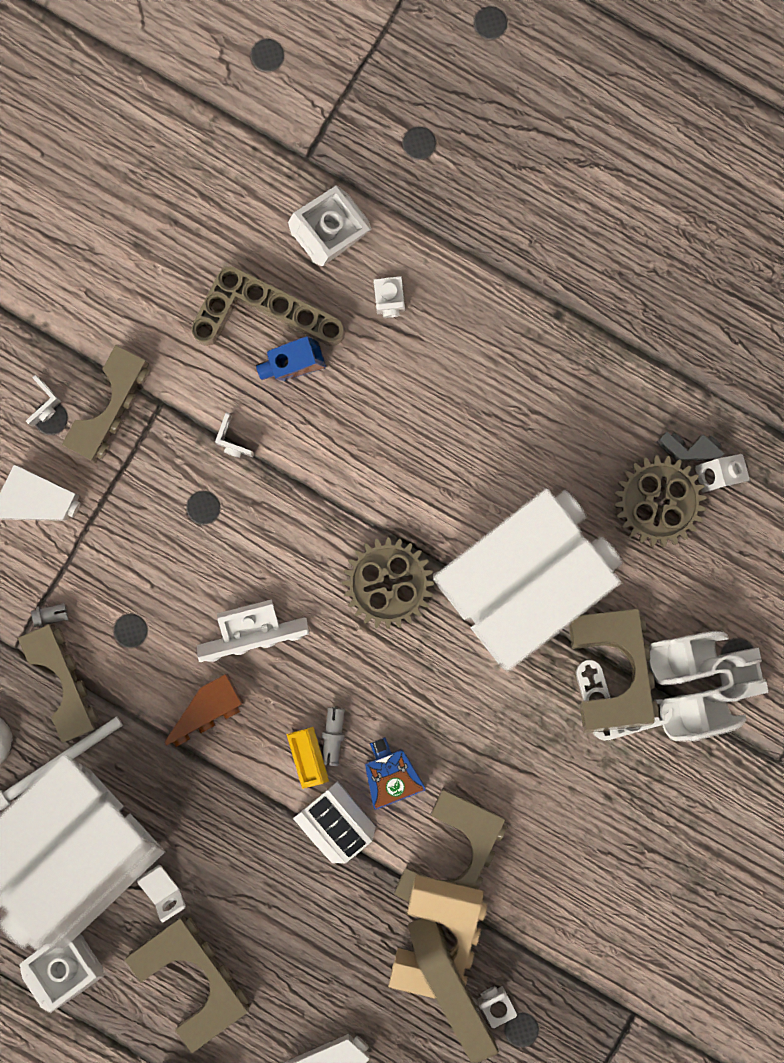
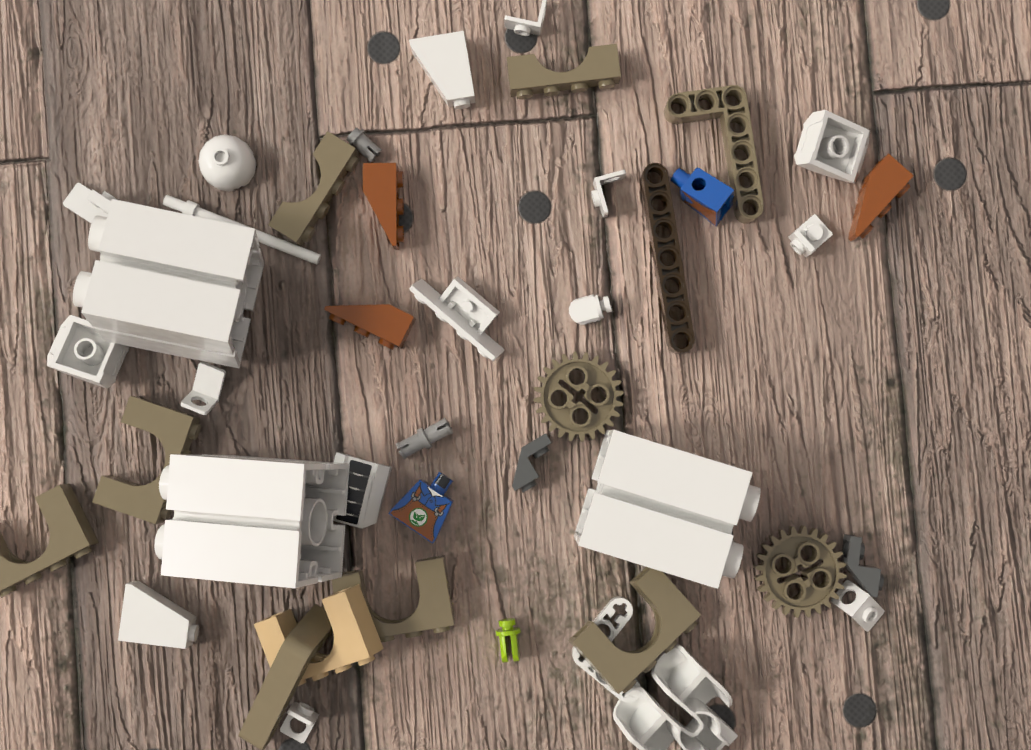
camera: 55 degrees right, 0 degrees up
(102, 628) = (381, 189): none -> dark orange slope
(301, 923) = (253, 519): none -> white brick
(307, 757) = (393, 430): yellow tile -> none
(315, 418) = (667, 245): none -> dark brown beam
(321, 522) = (589, 309): none -> white arm
(390, 212) = (876, 191): none -> dark orange slope
(419, 671) = (525, 472): none -> dark grey slope
(540, 777) = (508, 630): none -> lime arm

